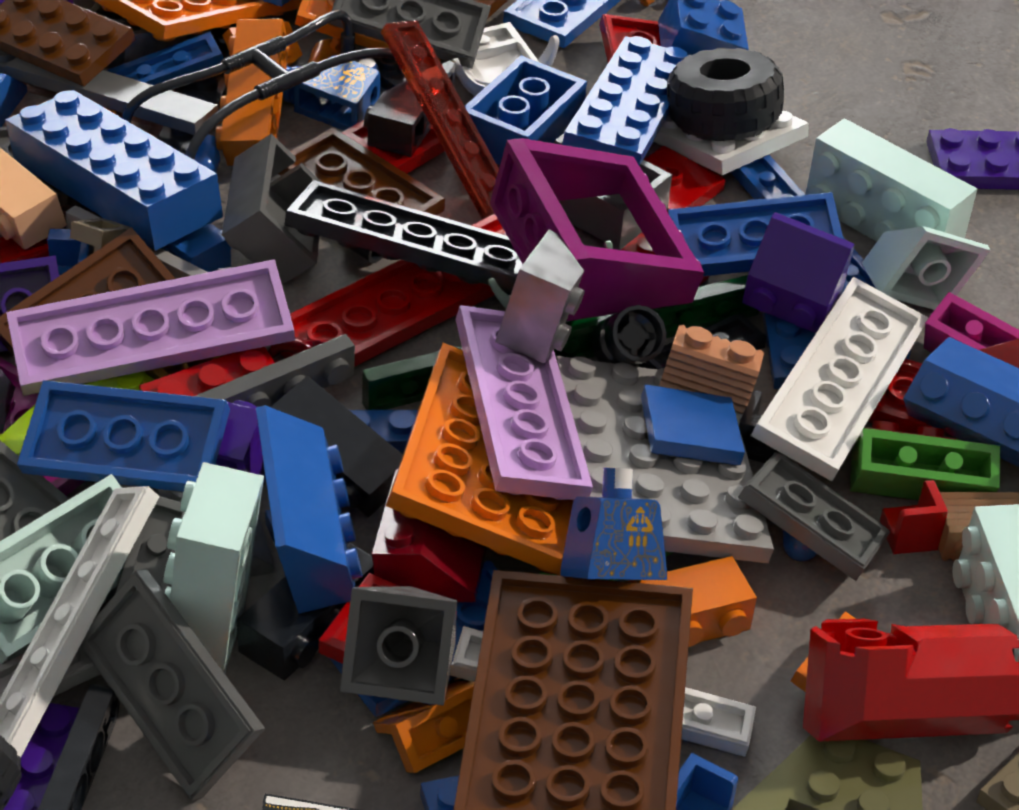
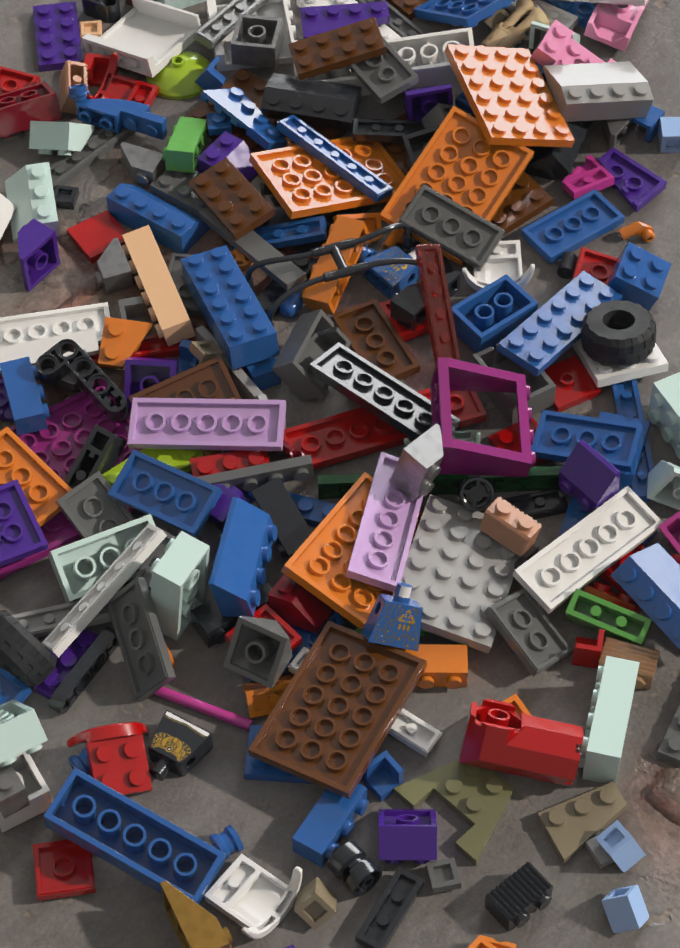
camera: 25 degrees right, 10 degrees up
(322, 779) = (204, 708): none -> dark pink bar
(590, 44) = (567, 265): none -> black hinge
(692, 425) = (481, 559): blue tile -> none

